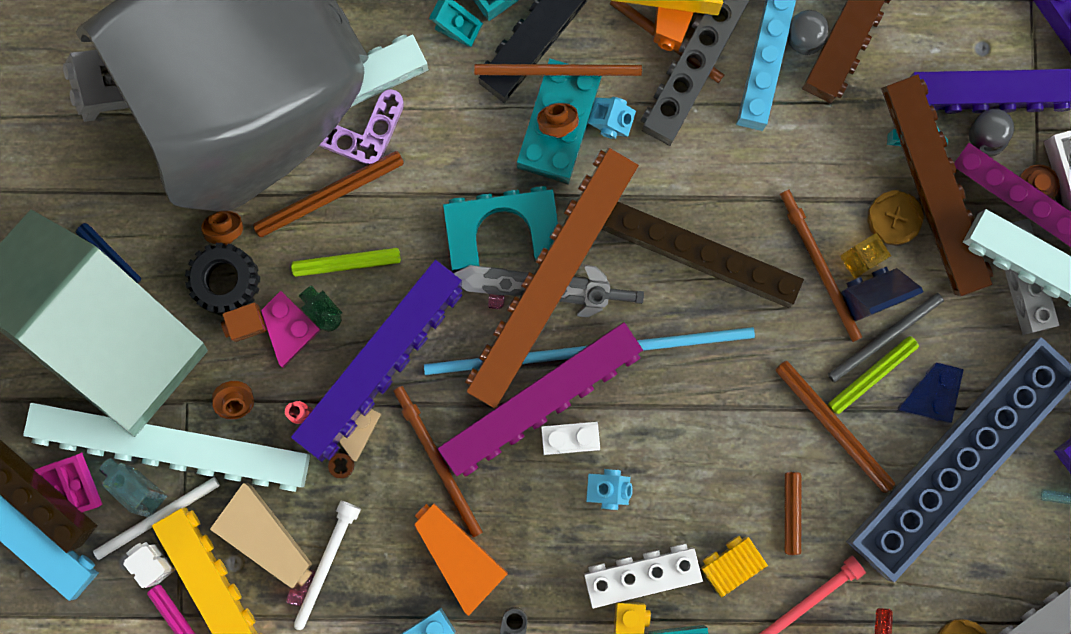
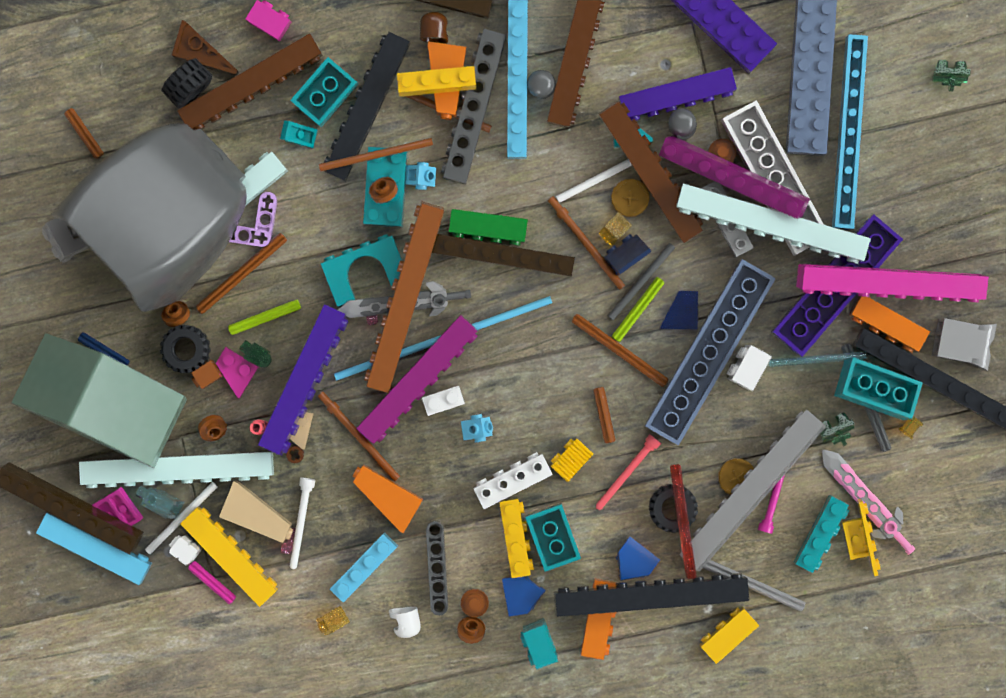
camera: 10 degrees left, 5 degrees up
(690, 209) = (488, 226): none -> green brick
(851, 182) = (594, 180): none -> white piece
(1020, 493) = (748, 367): none -> white brick

